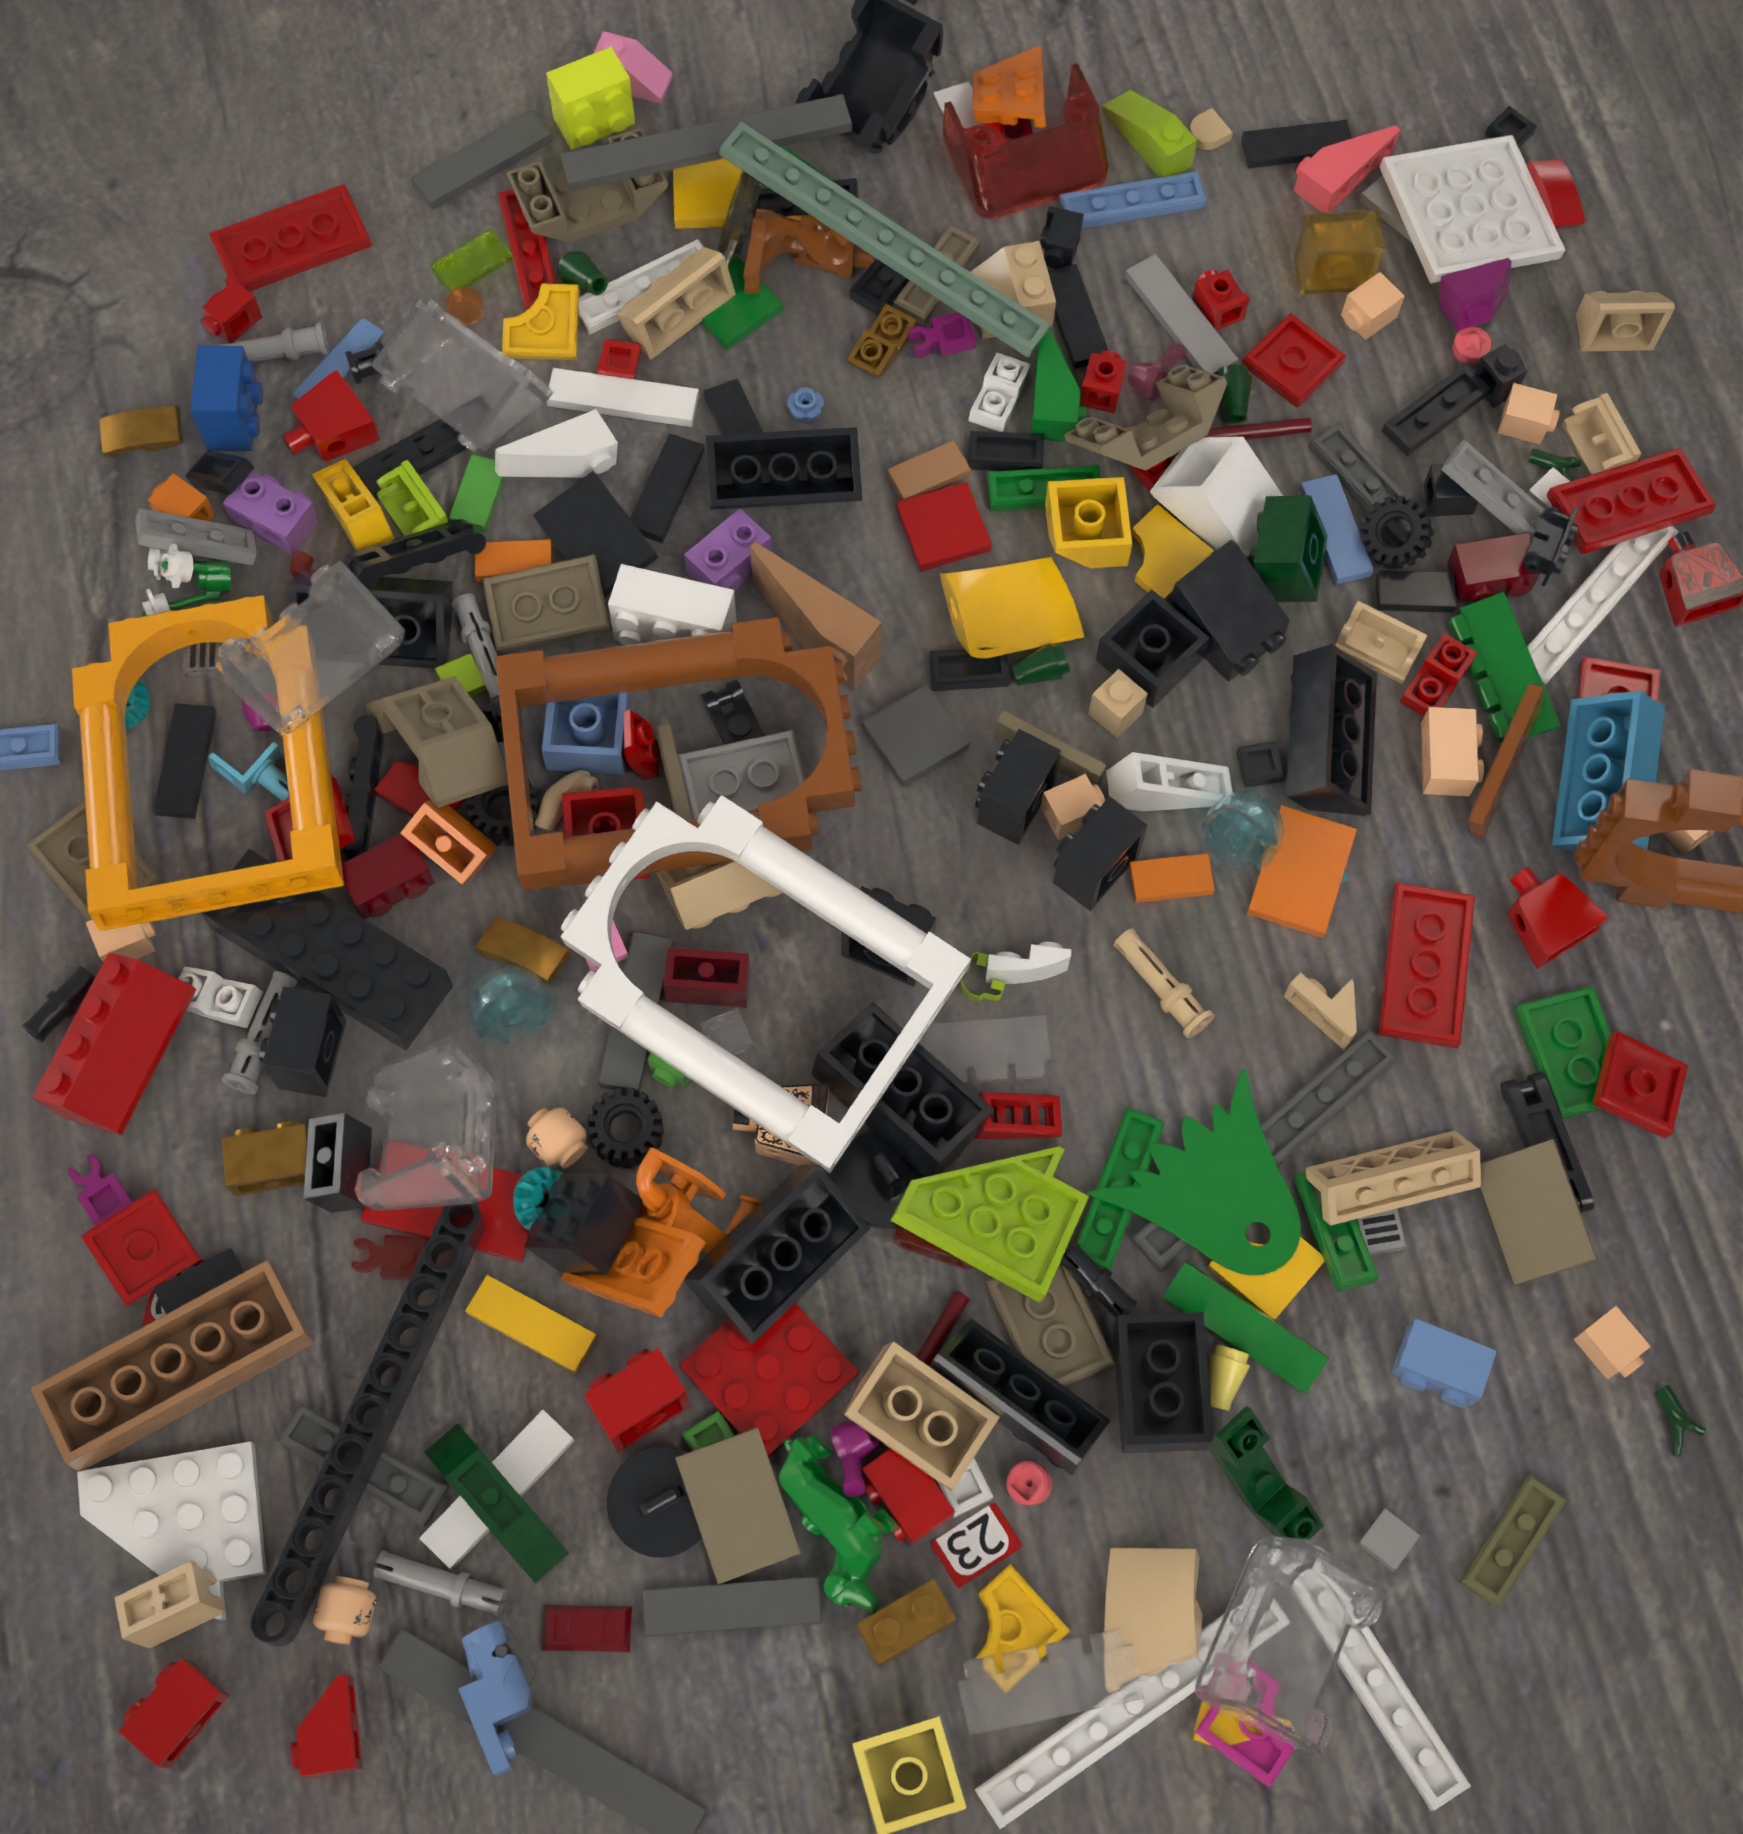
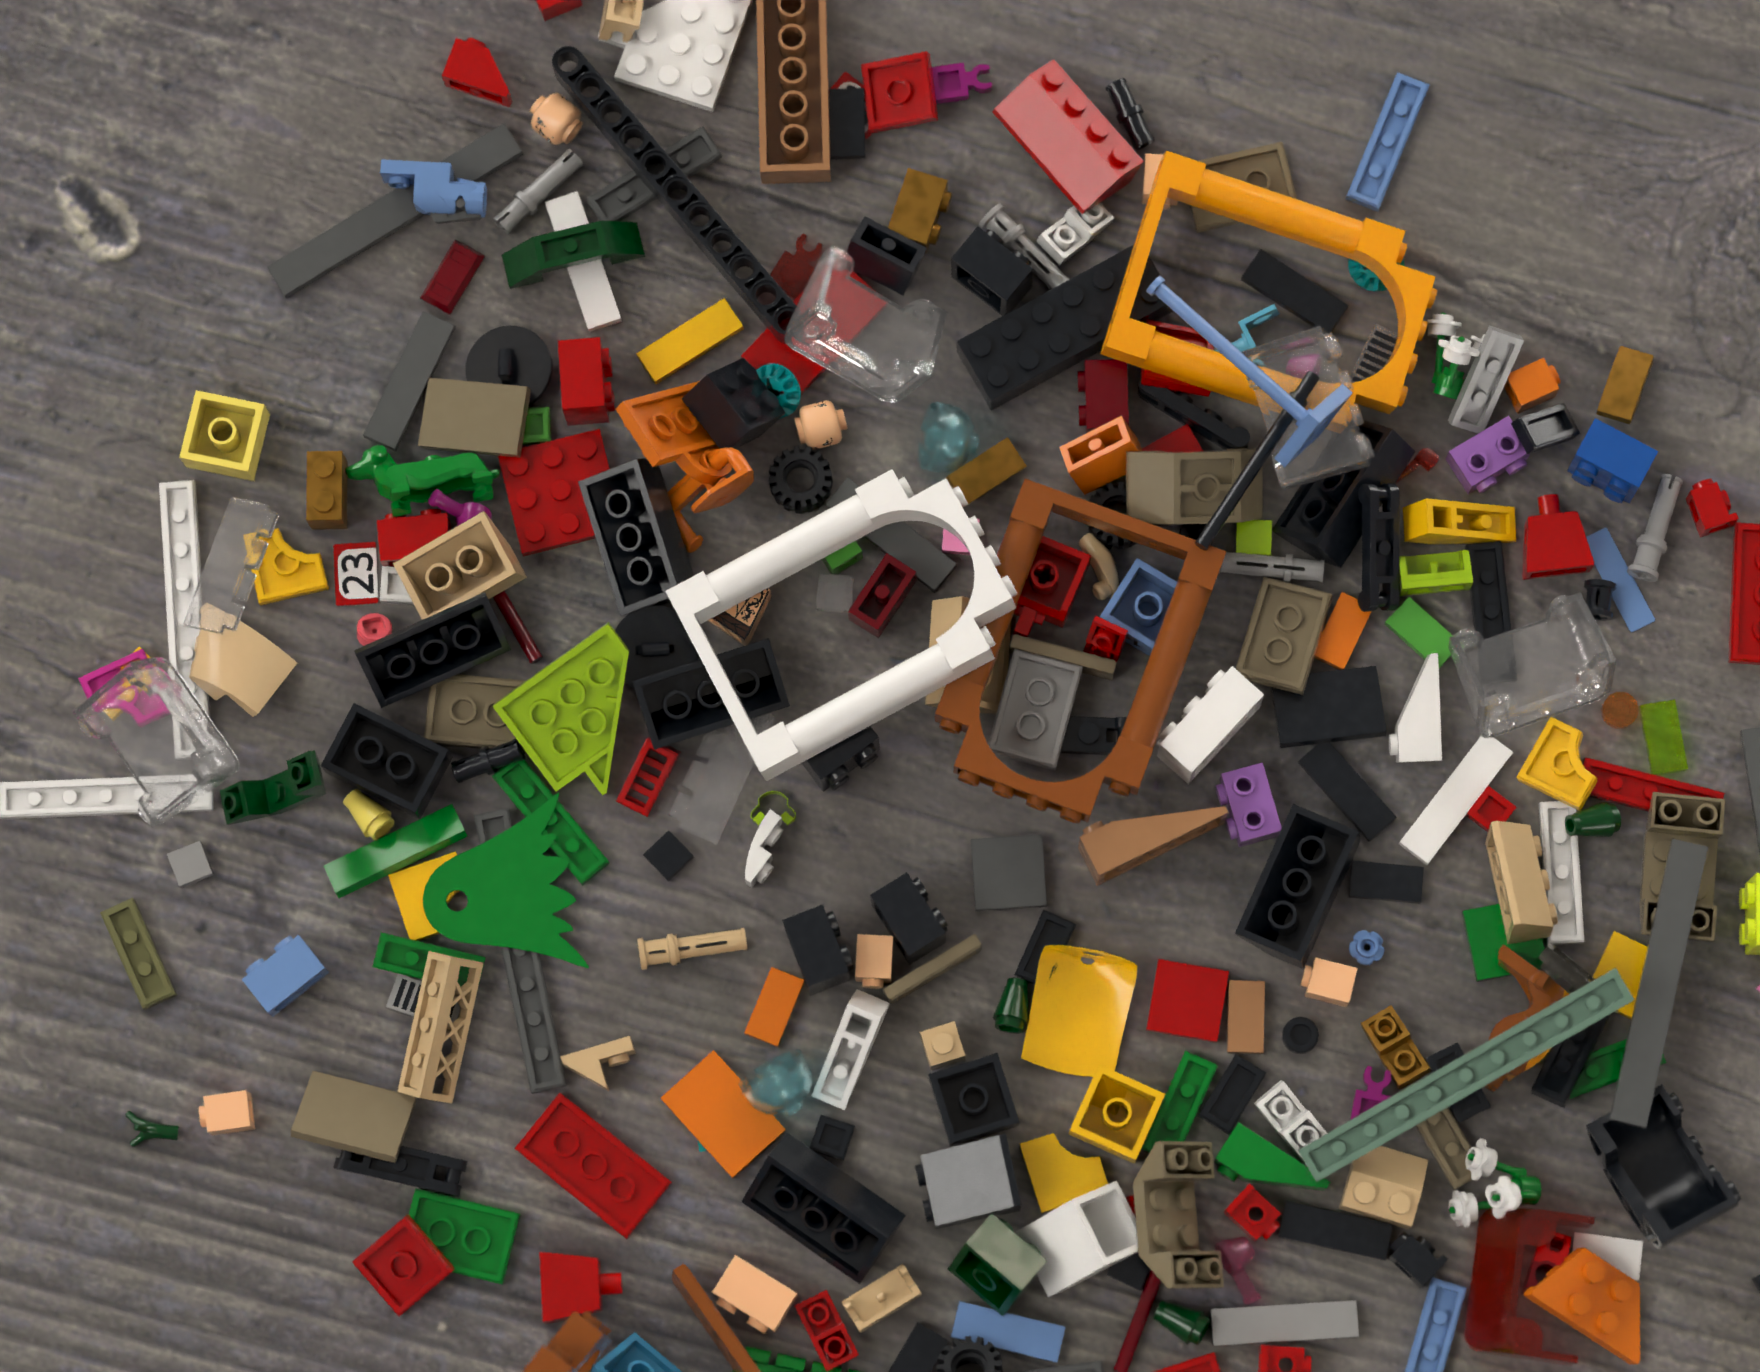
camera: 125 degrees right, 10 degrees up
(310, 670) = (1255, 464): none -> black bar
(329, 629) = (1309, 422): none -> medium blue tile
(856, 408) = (1329, 981): none -> light nougat brick
(918, 422) = (1300, 1035): none -> black tile
(962, 185) = (1502, 1196): none -> white plant
(1085, 1054) = (668, 855): none -> black tile

